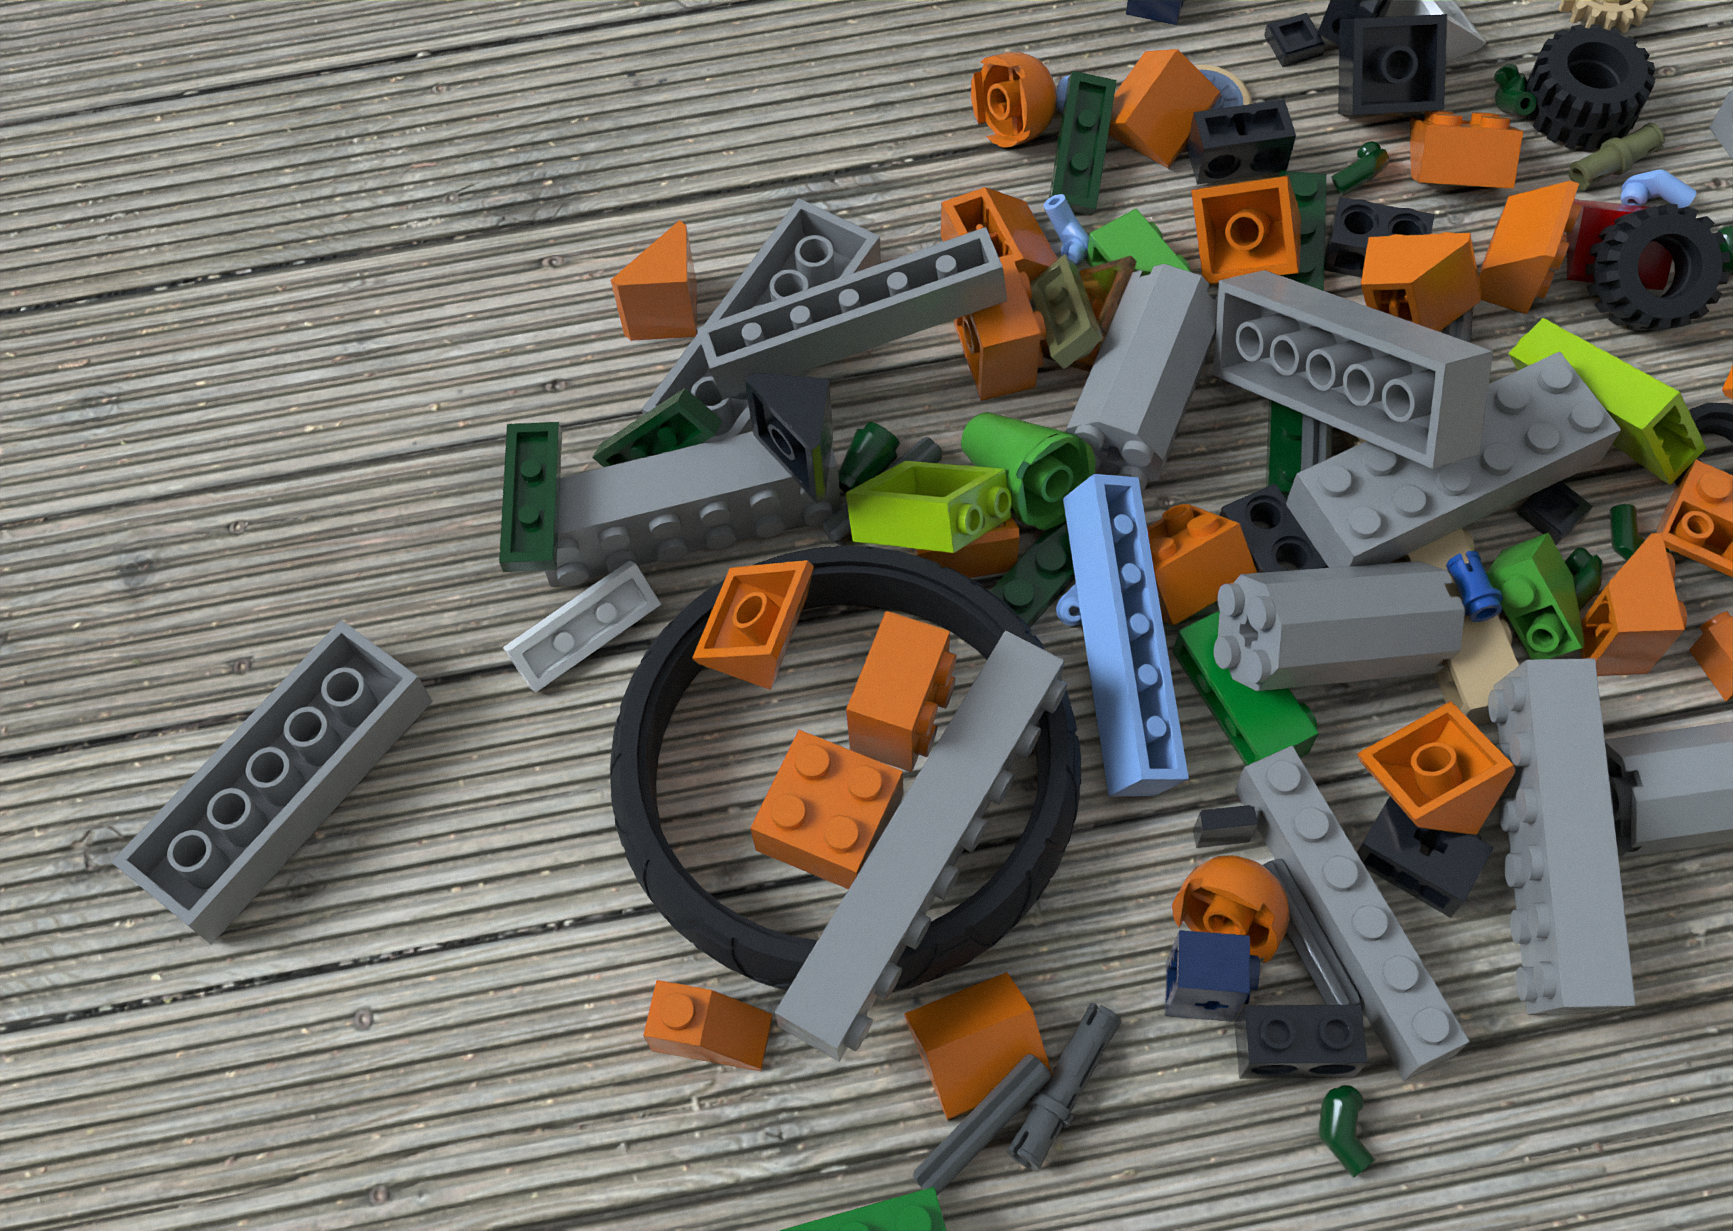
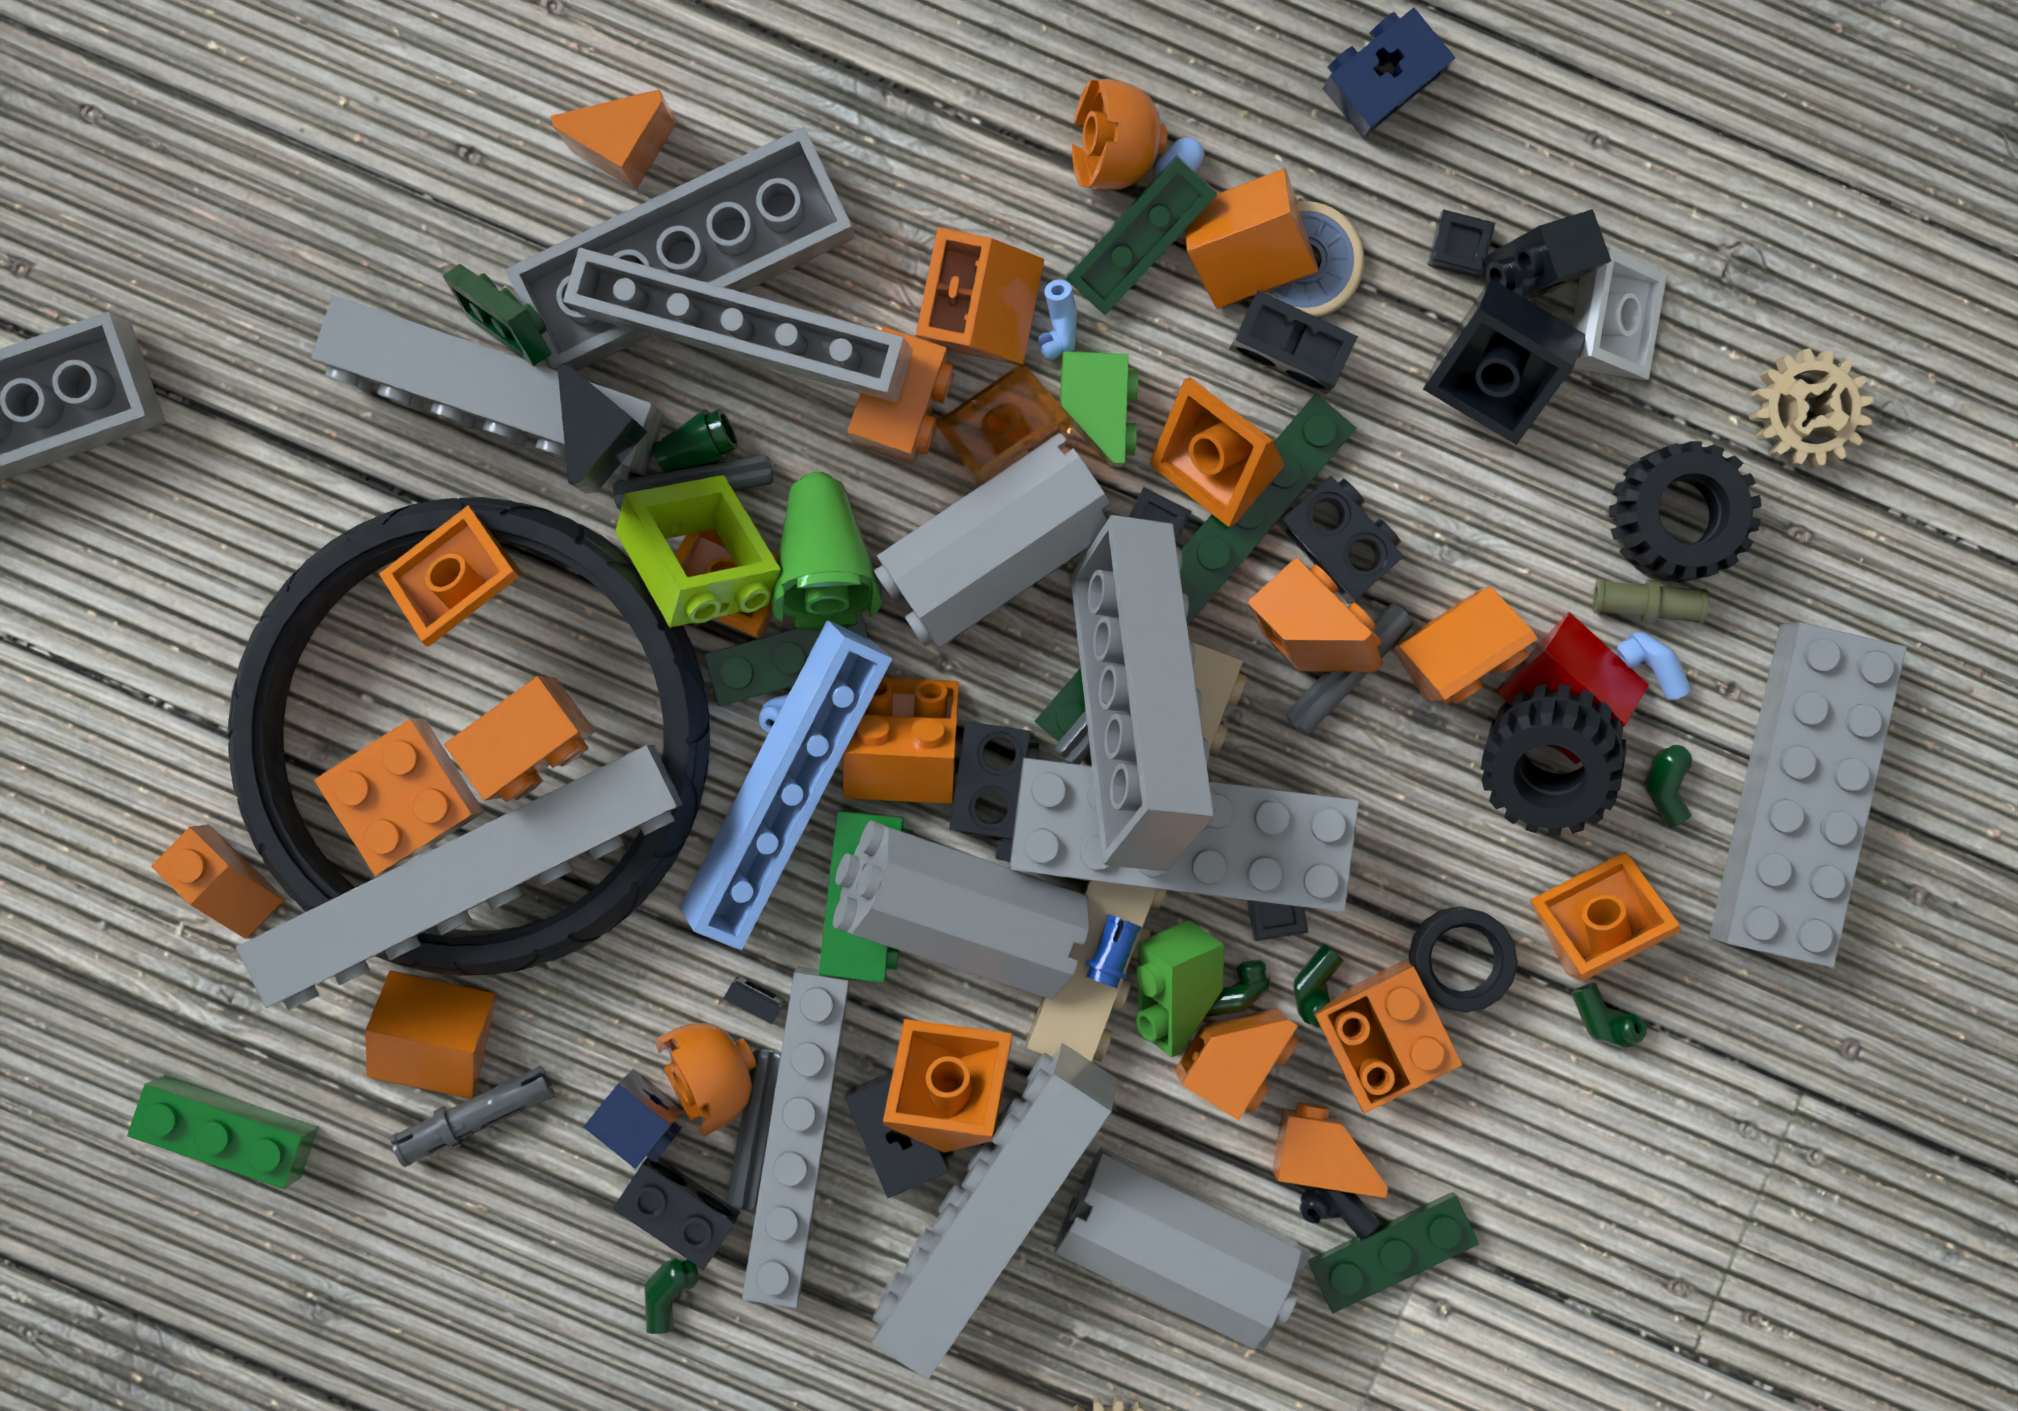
camera: 30 degrees right, 25 degrees up
(531, 497) = (328, 320): dark green plate -> none
(582, 626) = (334, 442): white plate -> none
(982, 1124) = (385, 1104): dark grey axle -> none
(1066, 312) = (969, 427): olive plate -> none
(1369, 164) = (1396, 448): dark green arm -> none
(1464, 151) = (1506, 497): orange slope -> none
(1511, 93) = (1615, 460): dark green arm -> none
(1651, 414) = (1391, 853): lime slope -> none

